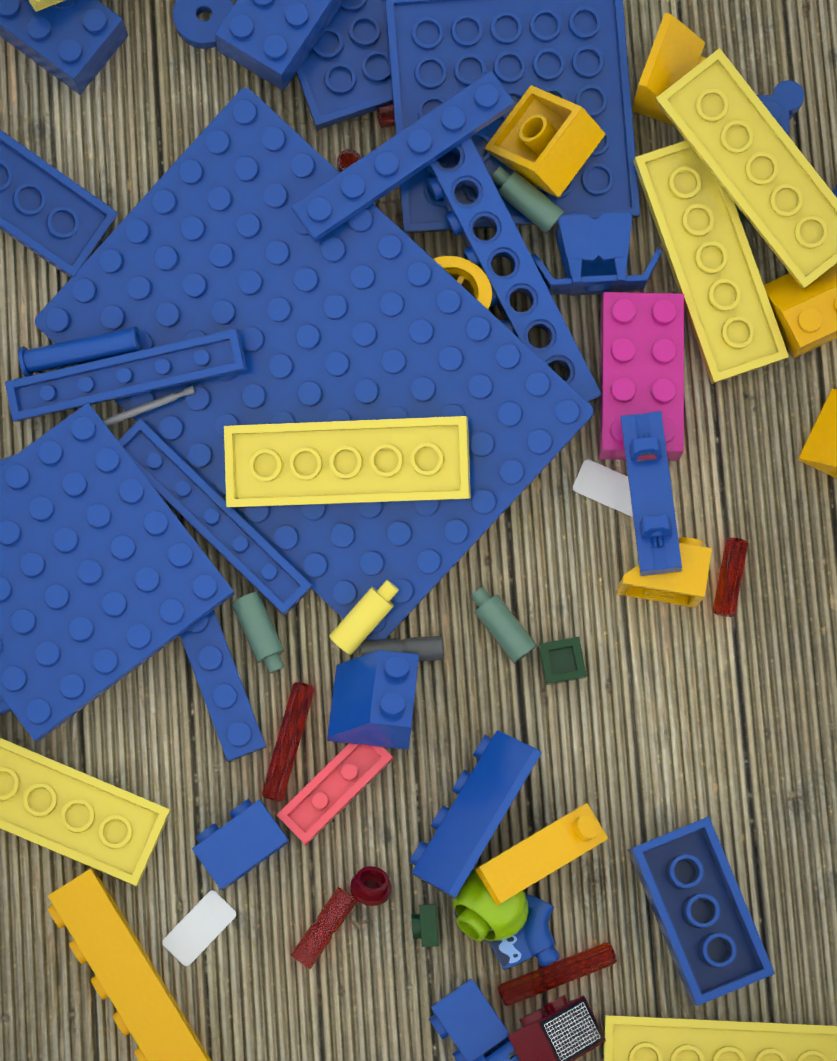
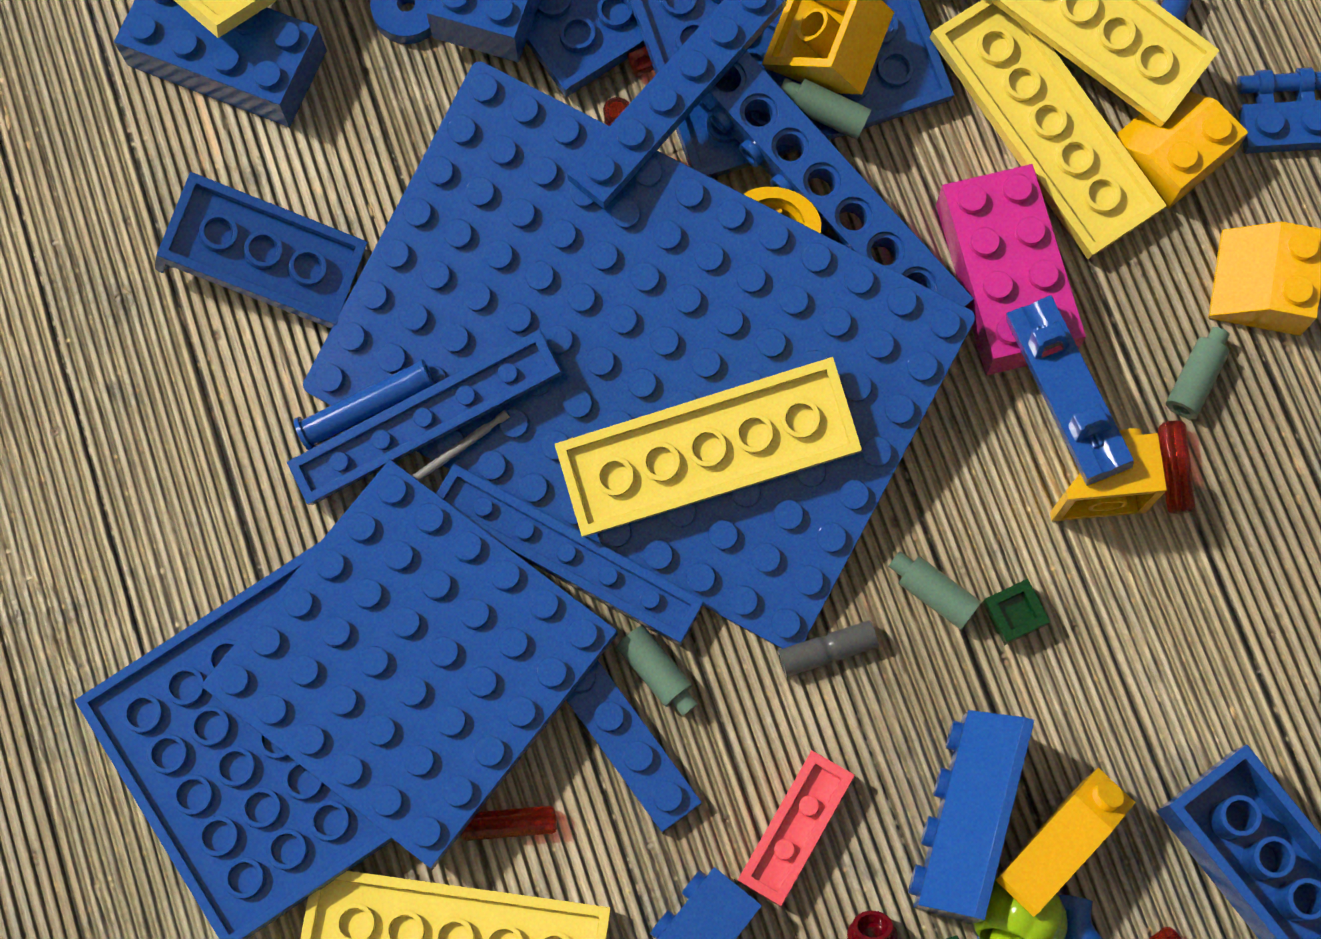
camera: 10 degrees left, 5 degrees down
(110, 722) = (511, 823): none -> clear red axle
(288, 741) = (726, 790): clear red axle -> none
(364, 617) = (776, 621): light yellow cylinder -> none
(374, 700) = (816, 713): blue slope -> none
(595, 256) = (919, 149): blue piece -> none
(604, 486) = (1007, 404): white sticker -> none
(773, 505) = (1199, 374): none -> sand green cylinder

